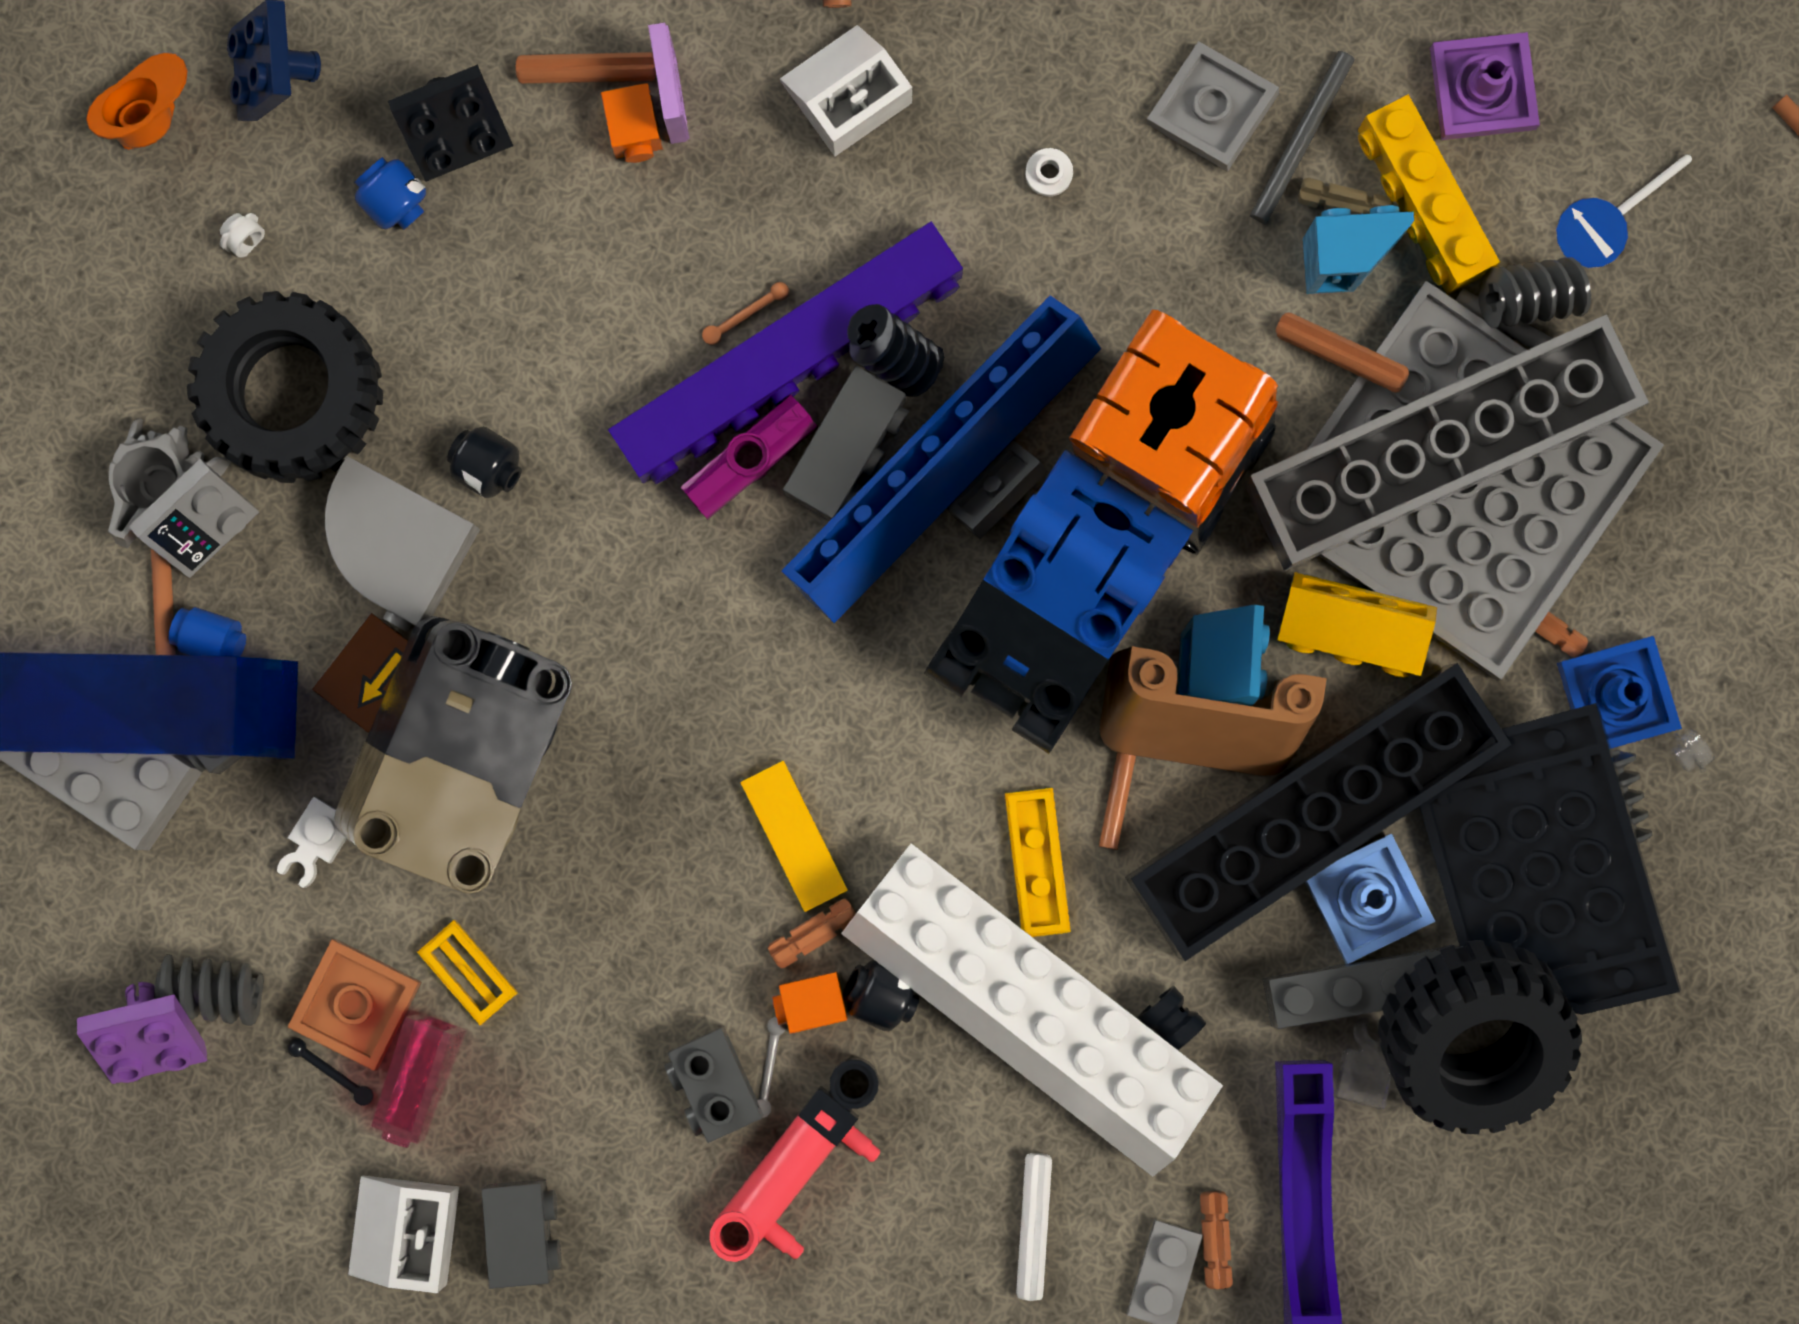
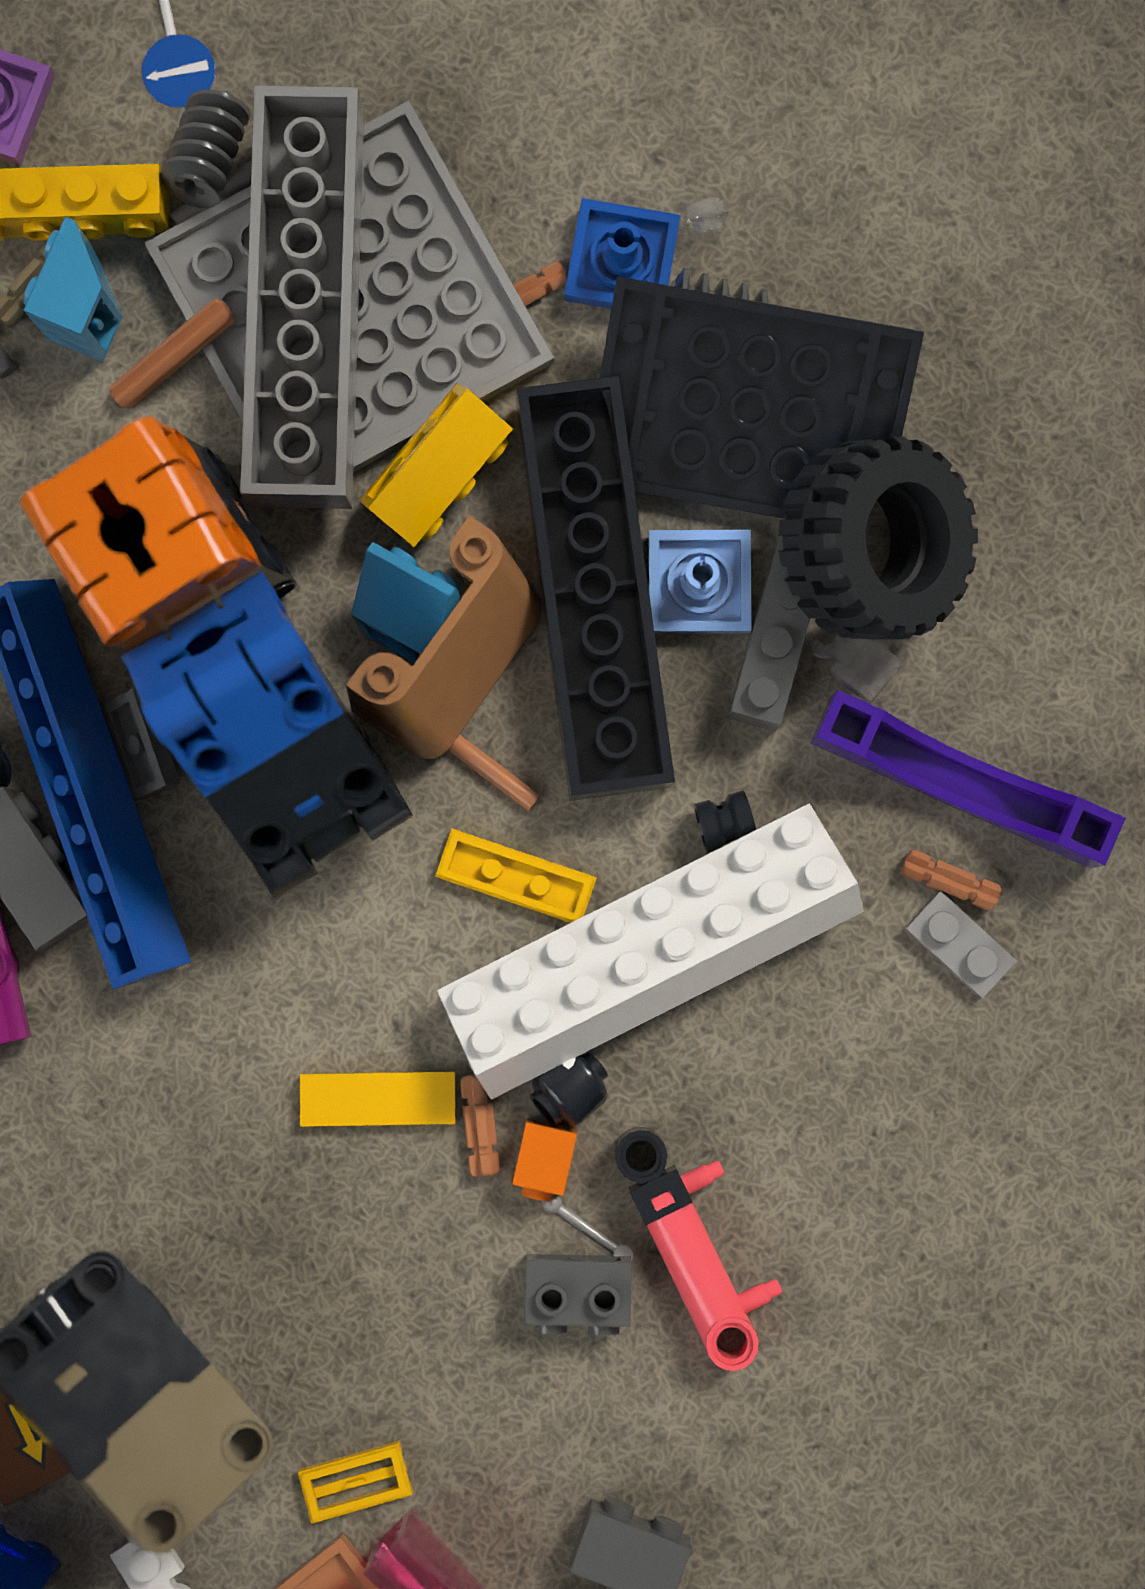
camera: 65 degrees left, 0 degrees up
(1034, 1226) = (858, 1047): white axle -> none

